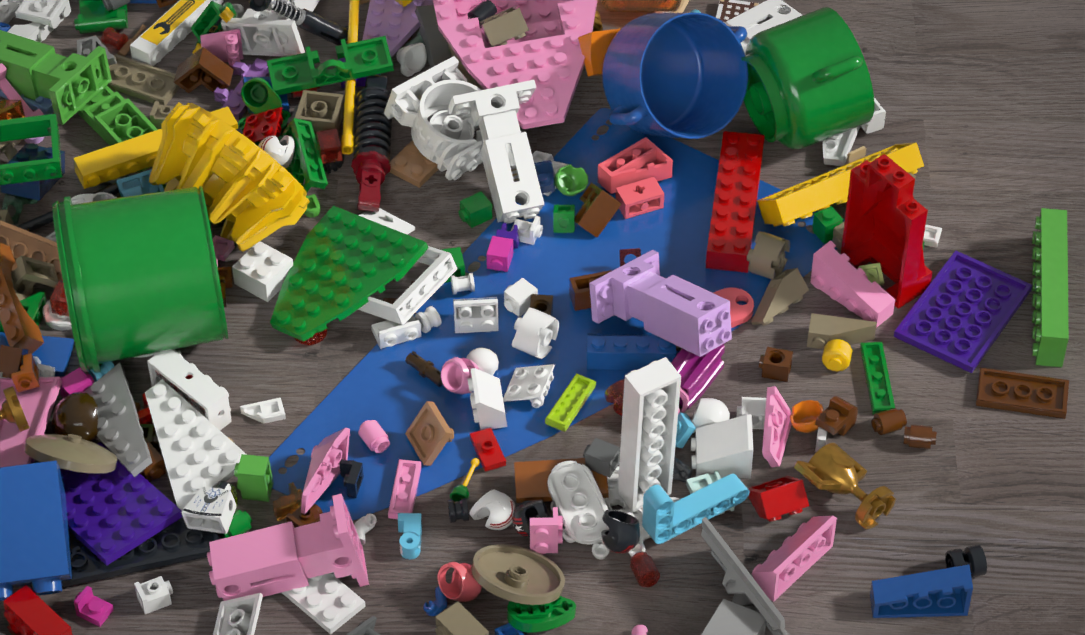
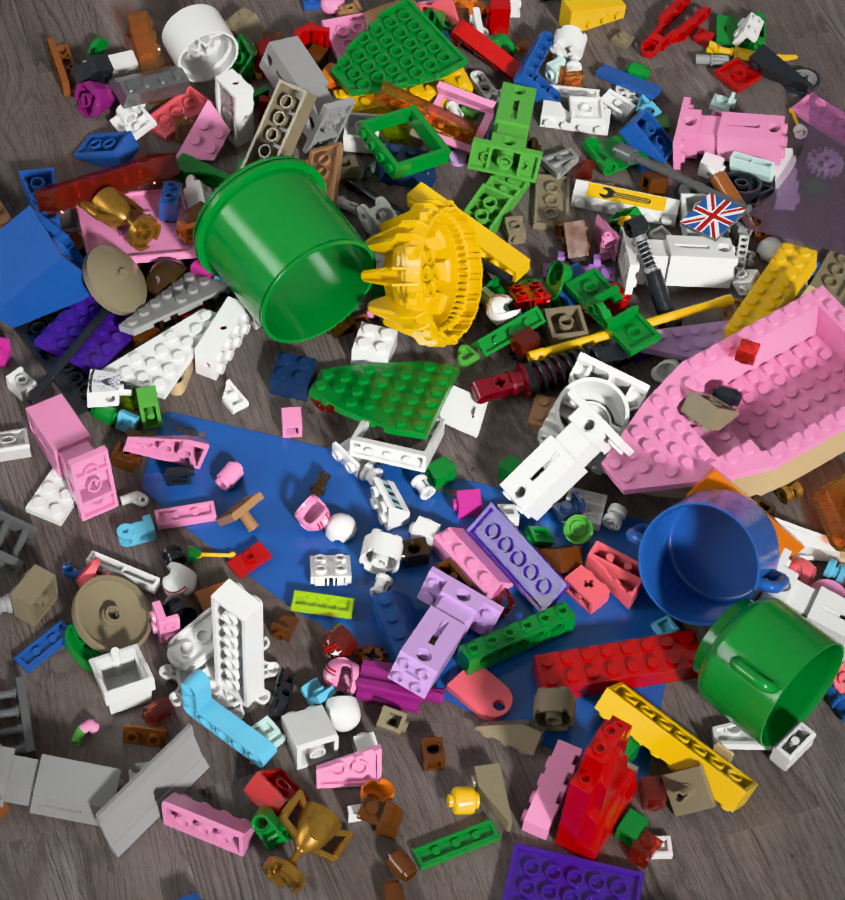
camera: 65 degrees right, 5 degrees up
(146, 523) = (67, 356): none -> black piece
(258, 507) = (126, 419): none -> medium azure tile
(268, 348) = (292, 376): none -> dark blue brick
(327, 366) = (291, 422): none -> bright pink brick
(462, 554) = (138, 577): none -> white piece
(487, 399) = (292, 539): white slope -> none
(509, 234) = (487, 498): dark purple tile -> none
(555, 277) = (471, 560): none -> bright pink slope
(565, 151) = (614, 517): none -> white wheel
(569, 350) = (382, 584): none -> white bush
(579, 439) = (284, 627): none -> reddish brown bracket
(585, 233) = (517, 558): none -> plate
(603, 580) = (123, 678): none -> white piece
(622, 535) = (173, 674): black helmet -> none
(670, 584) = (141, 735): none -> dark orange hinge
(673, 244) = (516, 638): none -> green brick
(702, 158) = (664, 626): none -> medium azure tile
(729, 384) = (389, 713): none -> dark tan brick
(817, 506) = (270, 832): none -> green piece
(934, 244) = (644, 849): none -> clear red bracket

